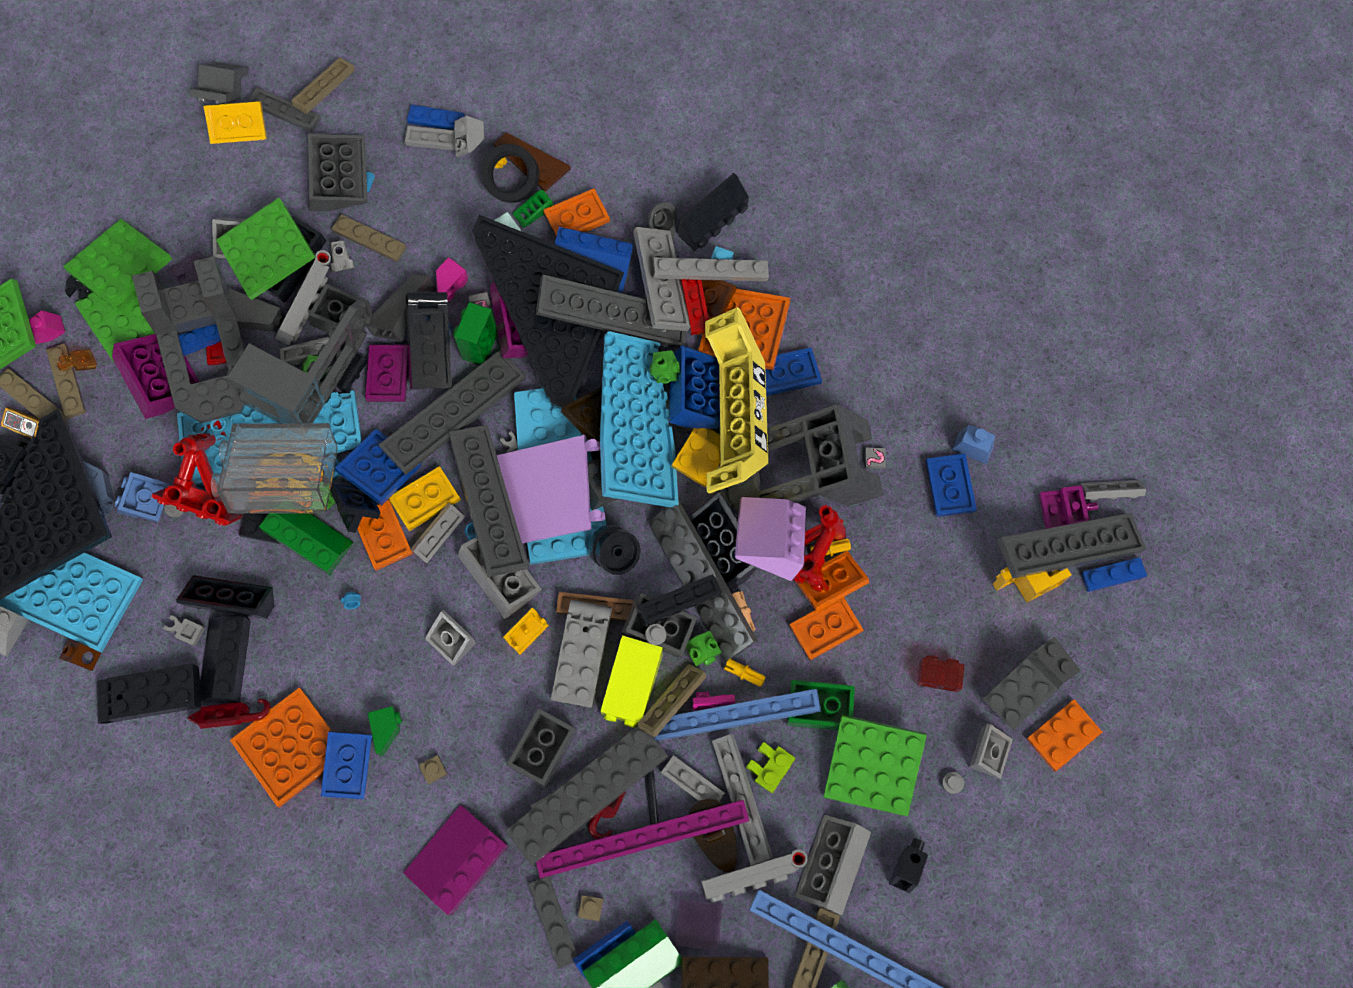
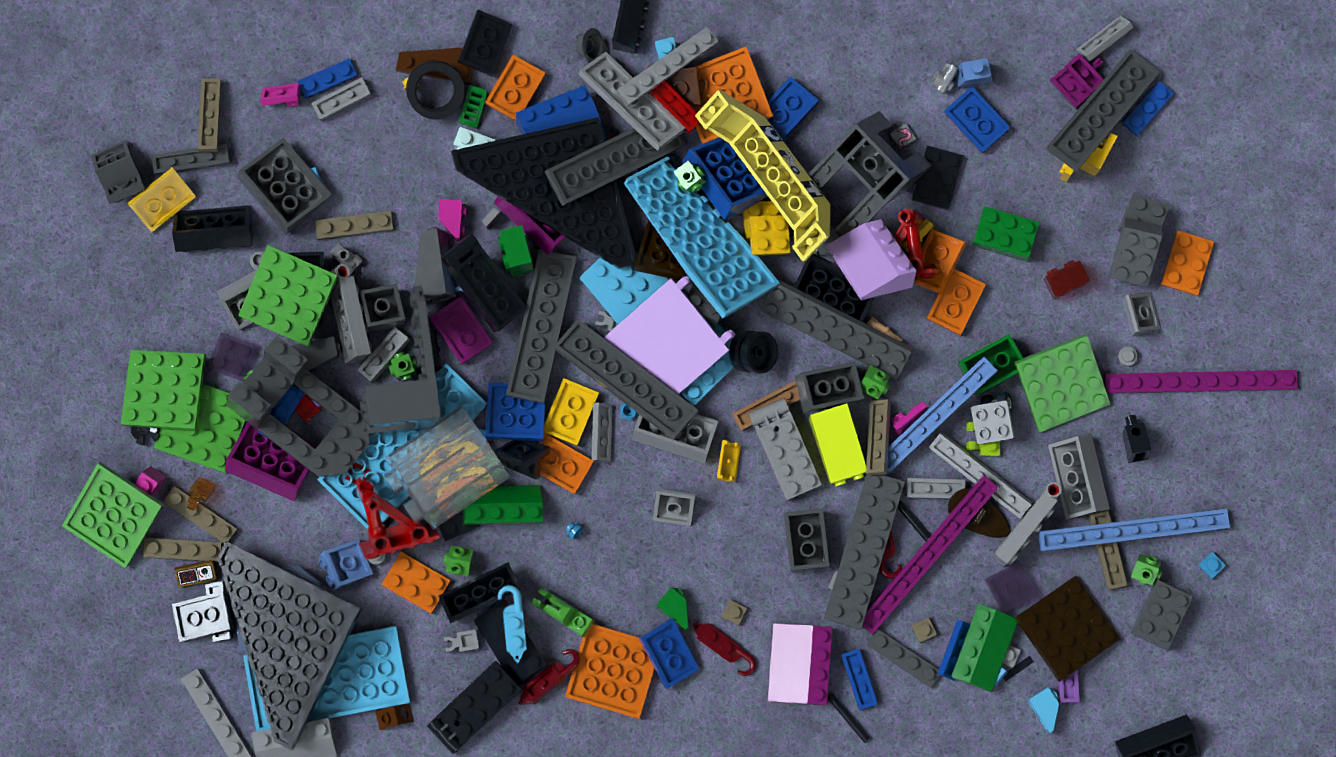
camera: 35 degrees left, 10 degrees up
(188, 552) = (415, 582): none -> orange plate
(228, 641) = (514, 623): none -> medium azure plate
(234, 558) = (458, 560): none -> bright green brick
(256, 169) = (212, 228): none -> black slope
(285, 664) = (564, 613): none -> bright green plate
(395, 107) = (283, 93): none -> dark pink hinge
(401, 794) = (724, 646): none -> dark red plate
(463, 942) = (848, 718): none -> black bar
(468, 135) = (372, 79): light grey slope -> none
(498, 913) = (859, 679): none -> blue plate
(577, 165) = (484, 43): none -> black plate
(655, 634) = (835, 396): light grey plate -> none
(679, 600) = (834, 358): black plate -> none
(745, 672) = (917, 378): yellow axle -> none
(788, 754) = (993, 418): none -> light grey plate
(882, 514) = (939, 181): none -> black plate
(911, 597) = (1005, 233): none -> green brick
(941, 434) = (943, 81): none -> light grey plate
(1010, 855) = (1201, 381): none -> magenta plate

